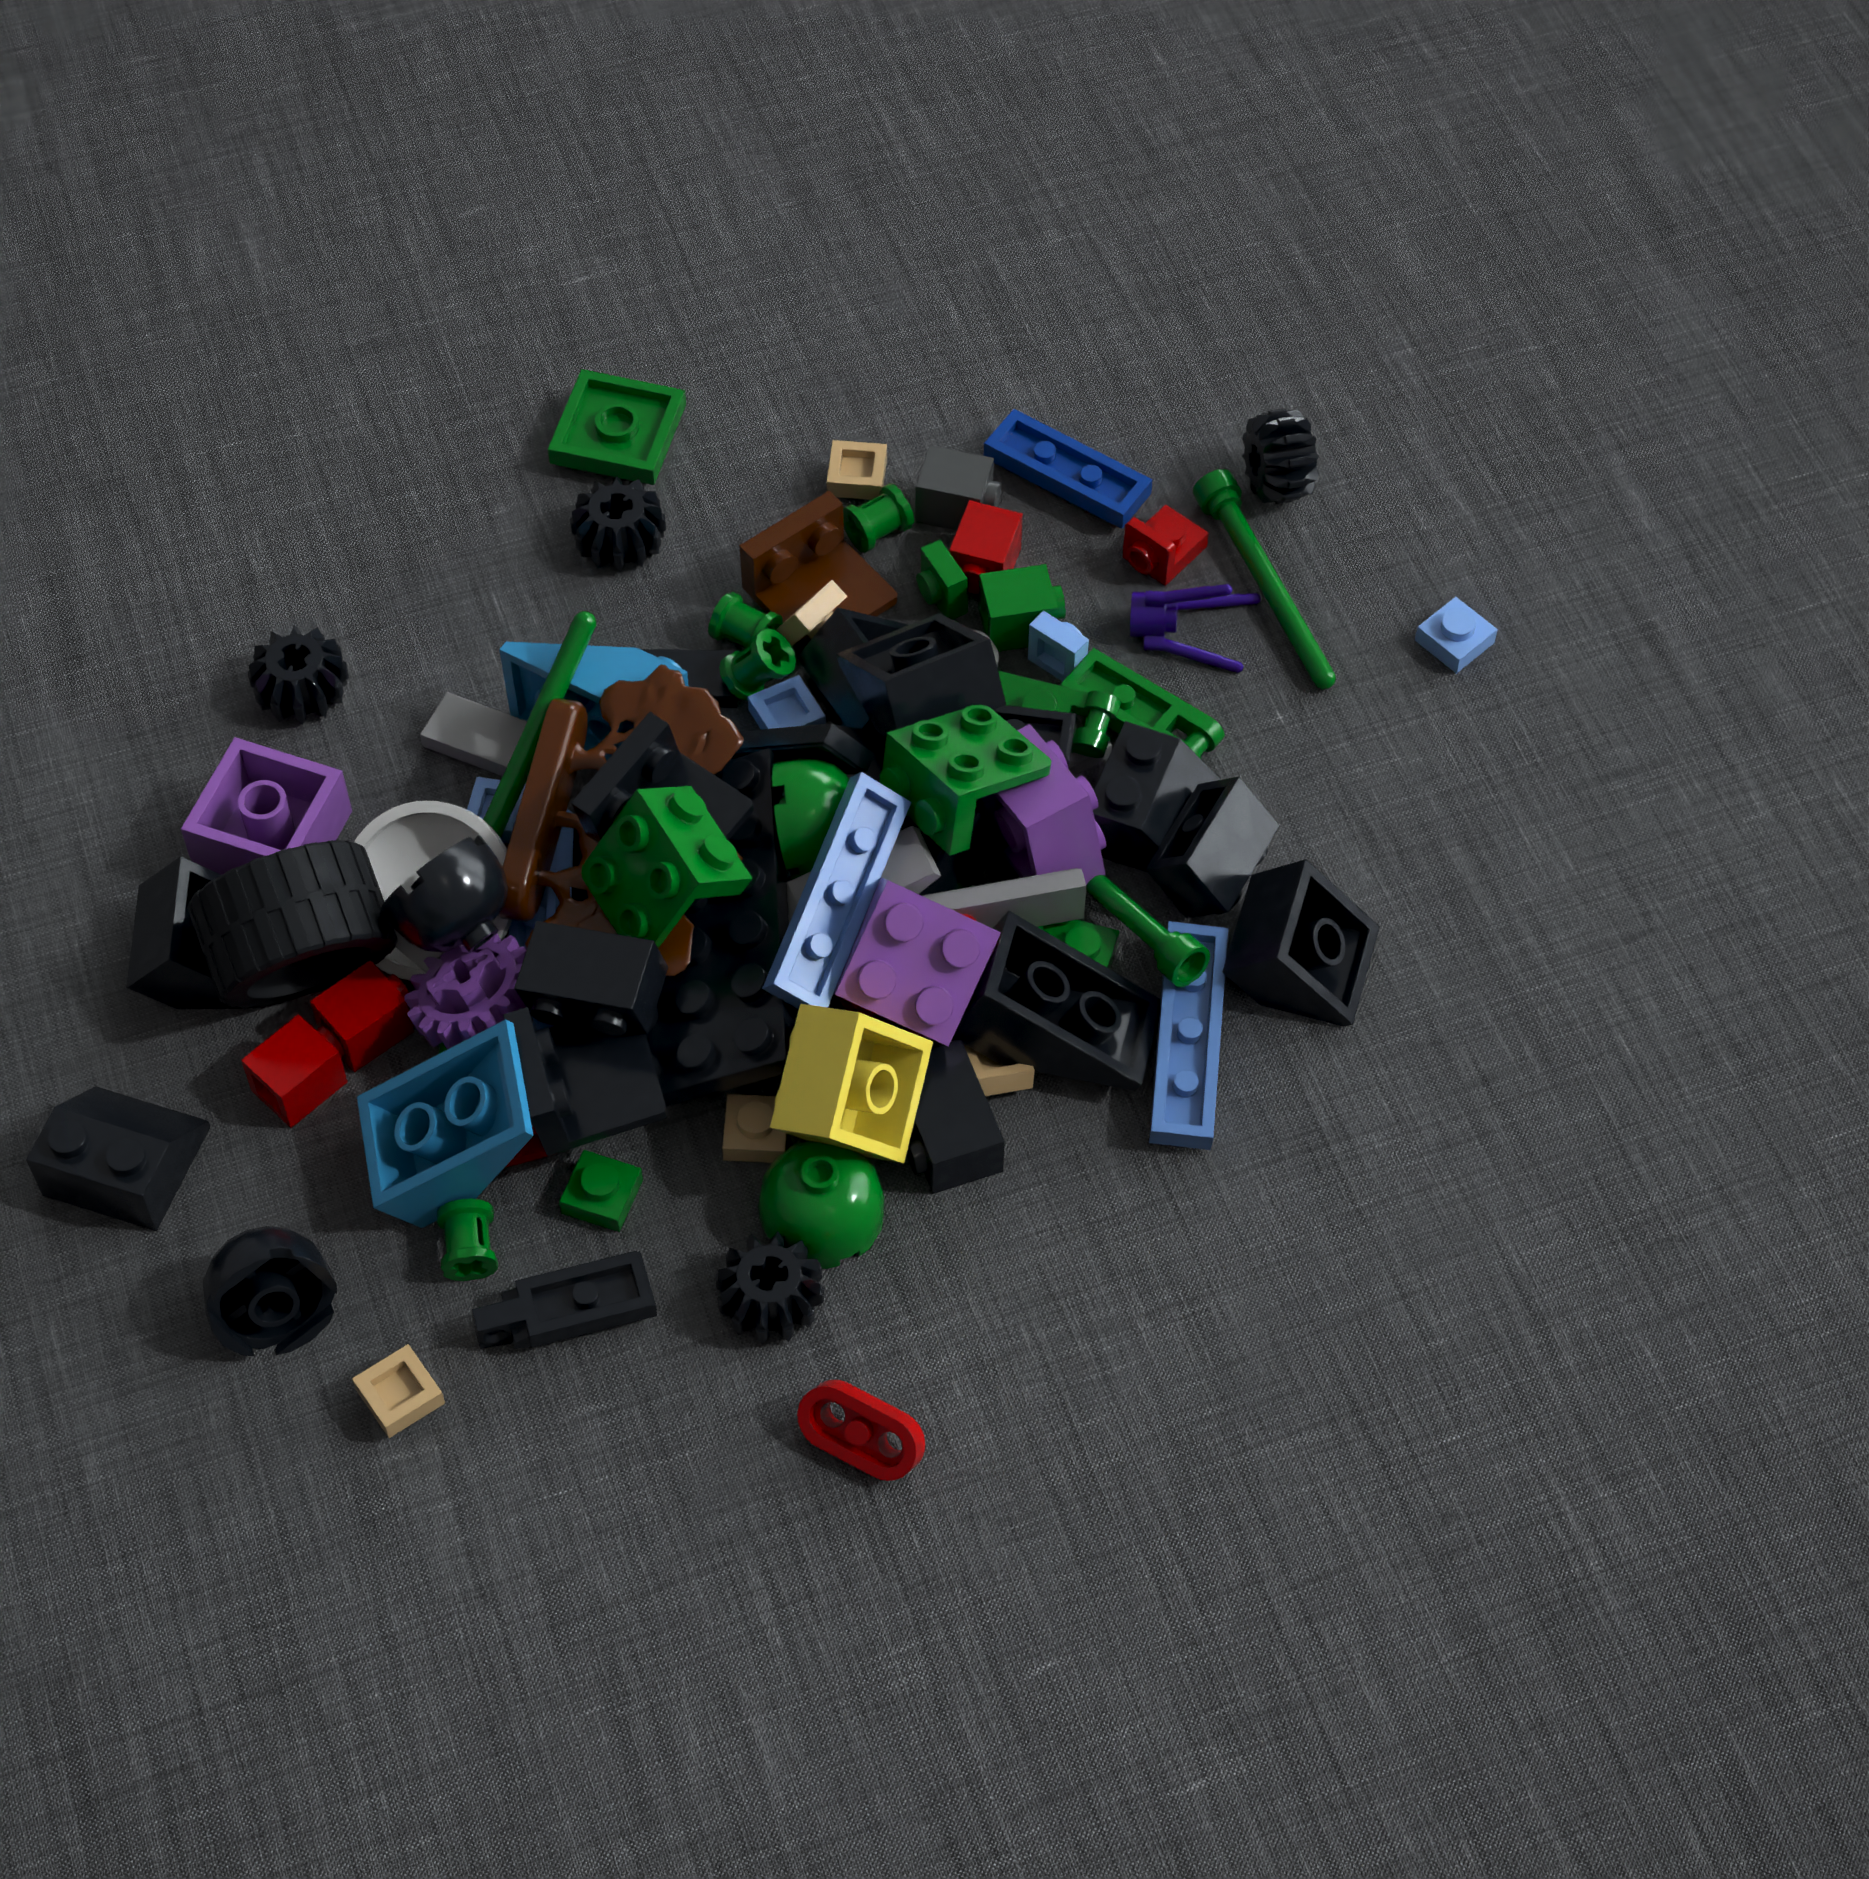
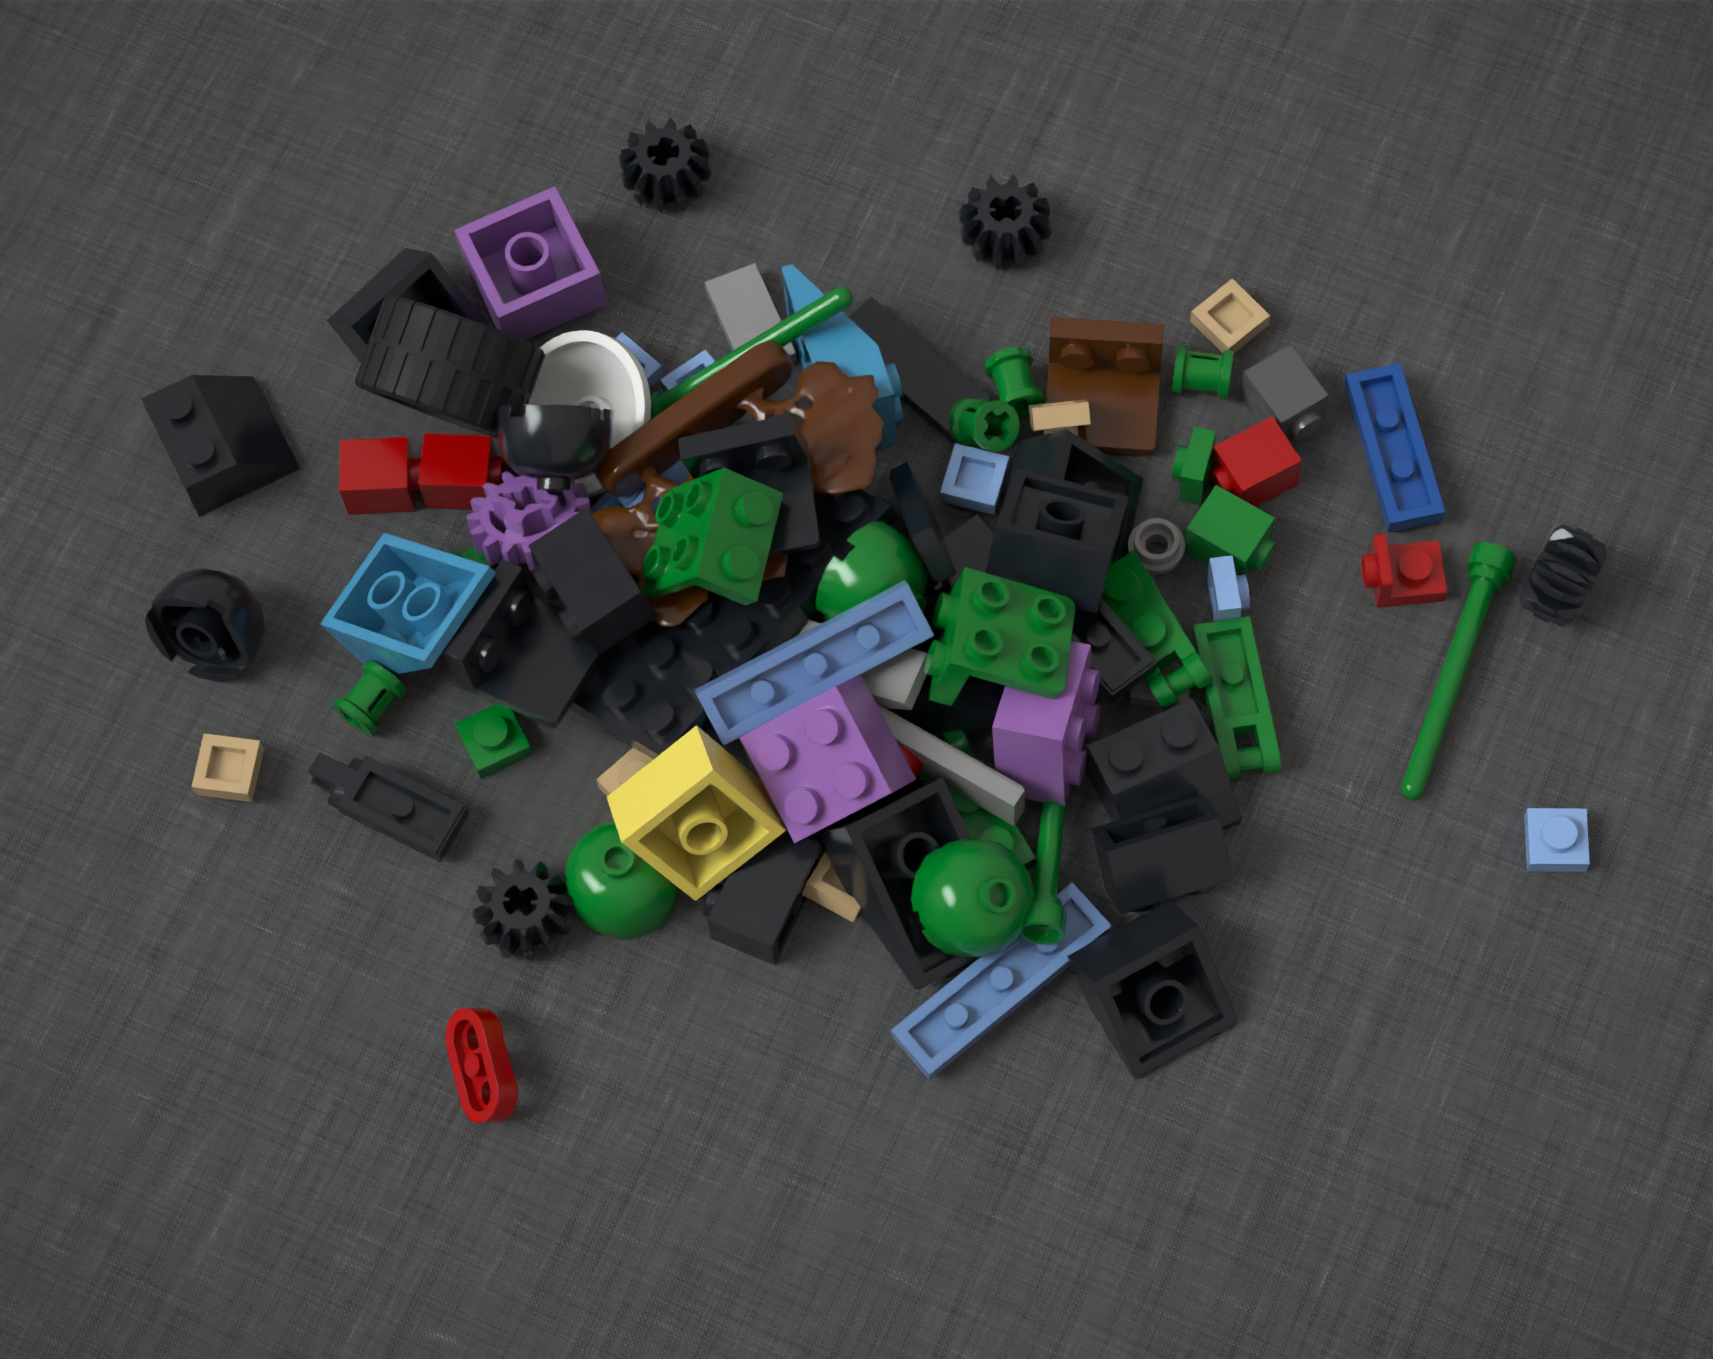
camera: 50 degrees right, 10 degrees up
(617, 426) = (1088, 137): green plate -> none
(1118, 980) = (972, 897): none -> green cylinder
(1157, 613) = (1334, 629): dark purple plant -> none

